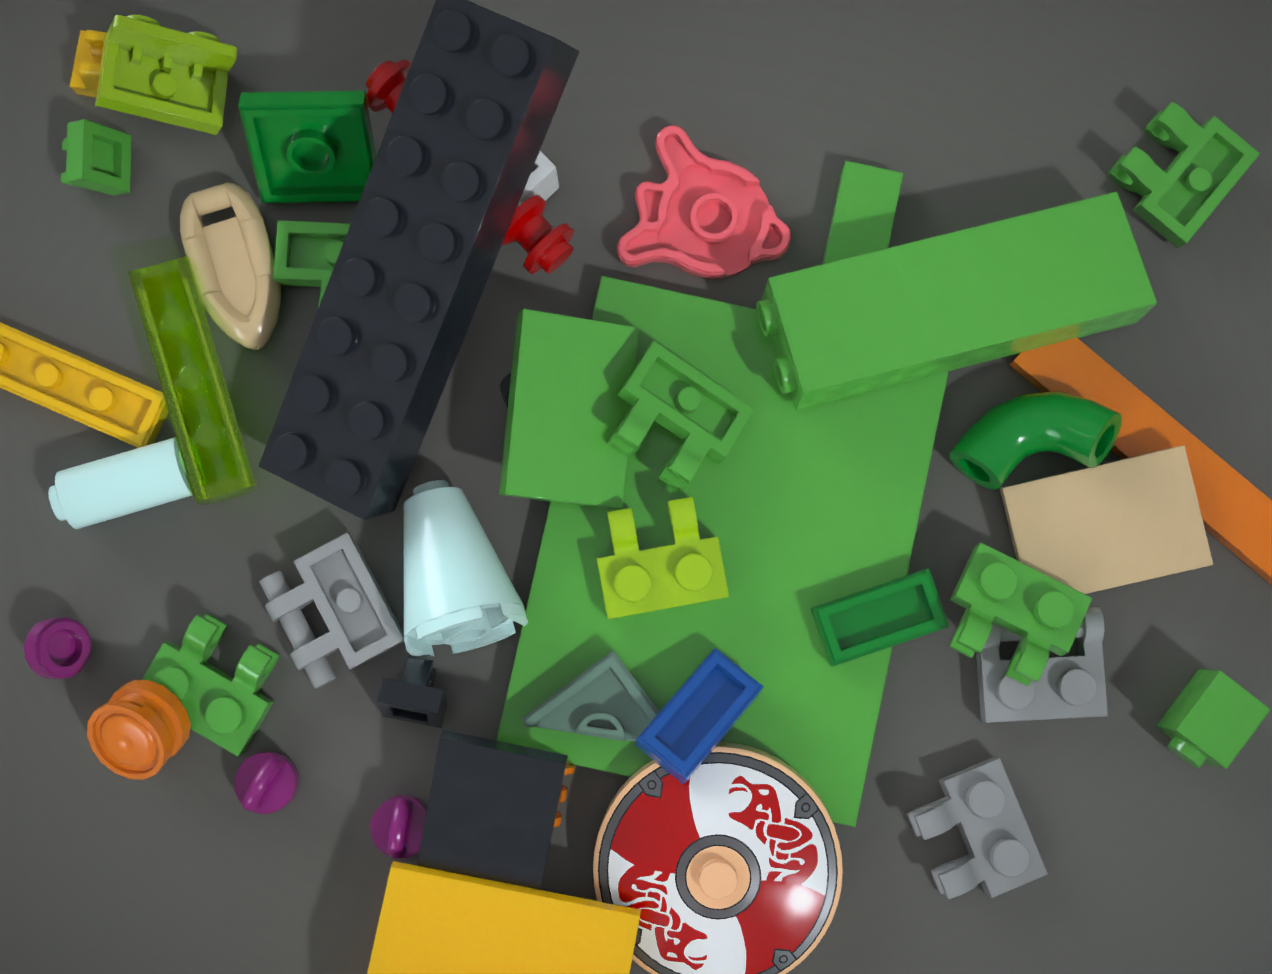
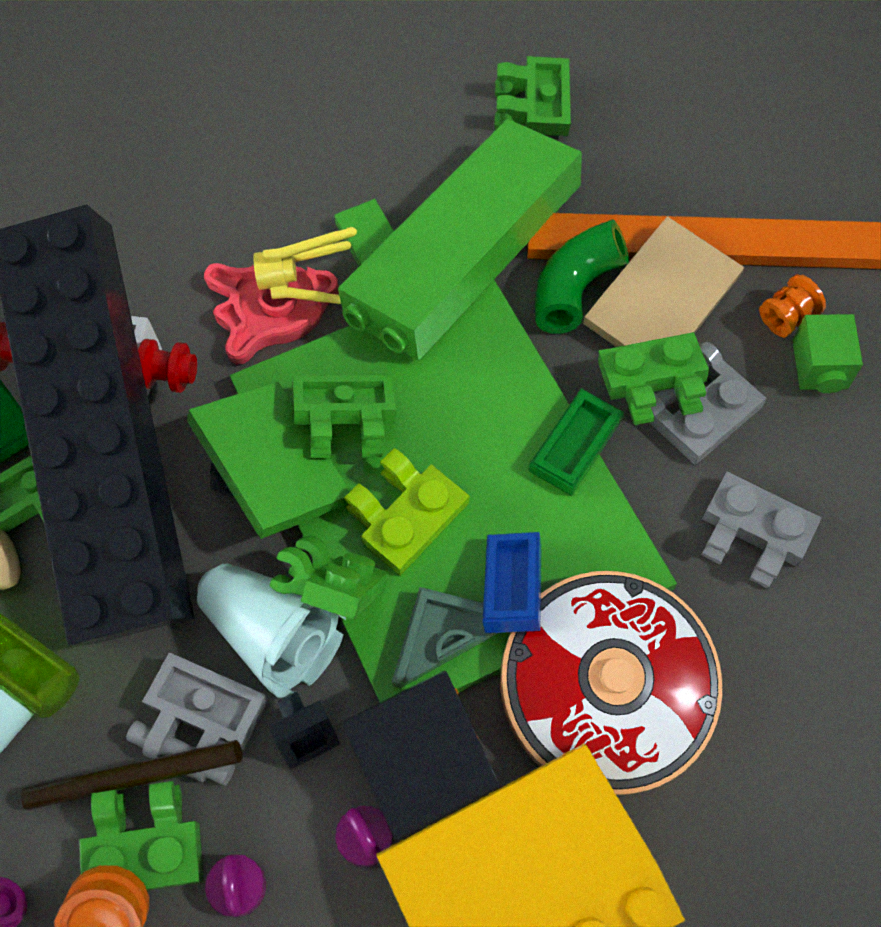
camera: 35 degrees left, 20 degrees down
(242, 623) = (132, 775): none -> dark brown bar
(539, 606) = (335, 585): none -> bright green plate
(733, 193) = (278, 267): none -> light yellow plant
(1226, 641) = (791, 304): none -> orange bush

